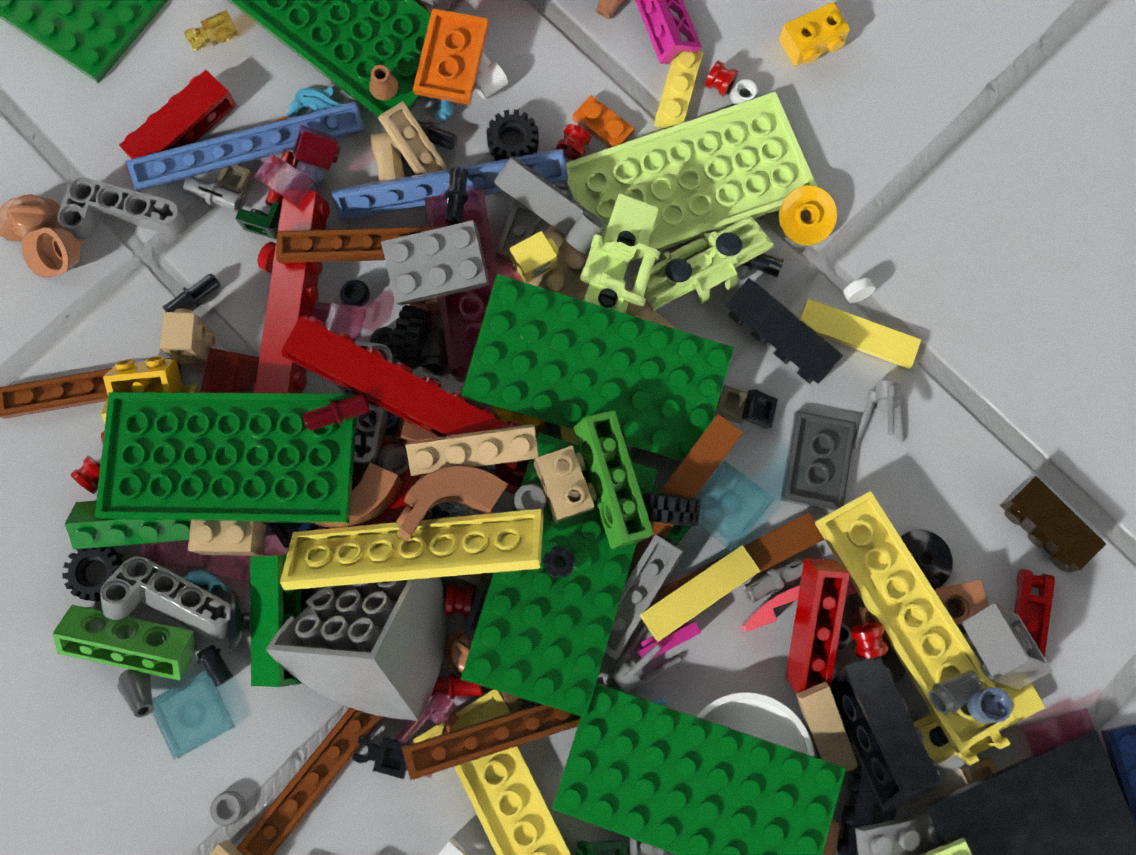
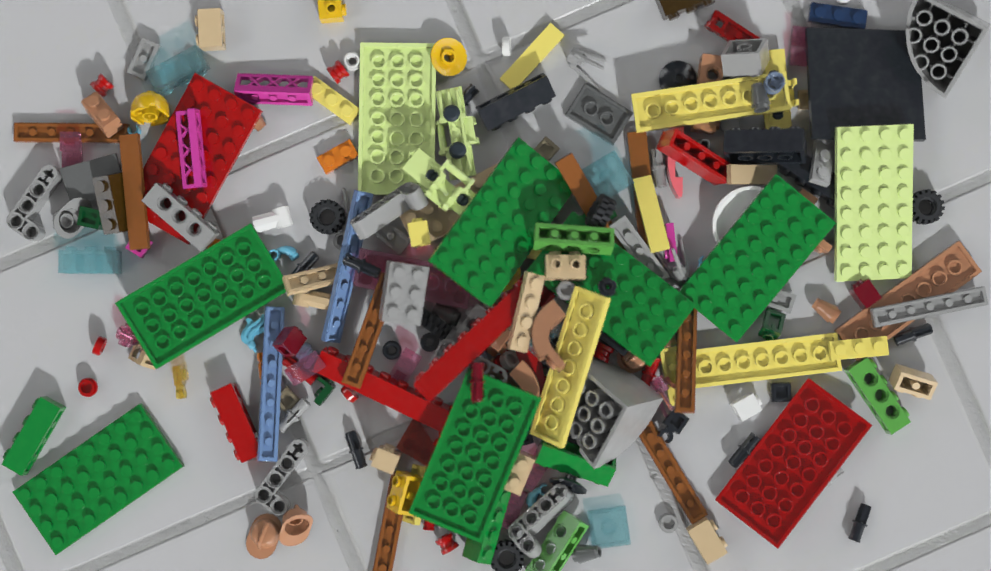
camera: 70 degrees left, 10 degrees up
(214, 665) = (586, 505): black pin -> none
(382, 83) = (269, 288): nougat cone -> none
(451, 56) = (262, 235): orange plate -> none
(574, 141) = (345, 180): red wheel -> none
(759, 408) = (555, 135): black tile -> none
(869, 640) = (713, 131): red wheel -> none

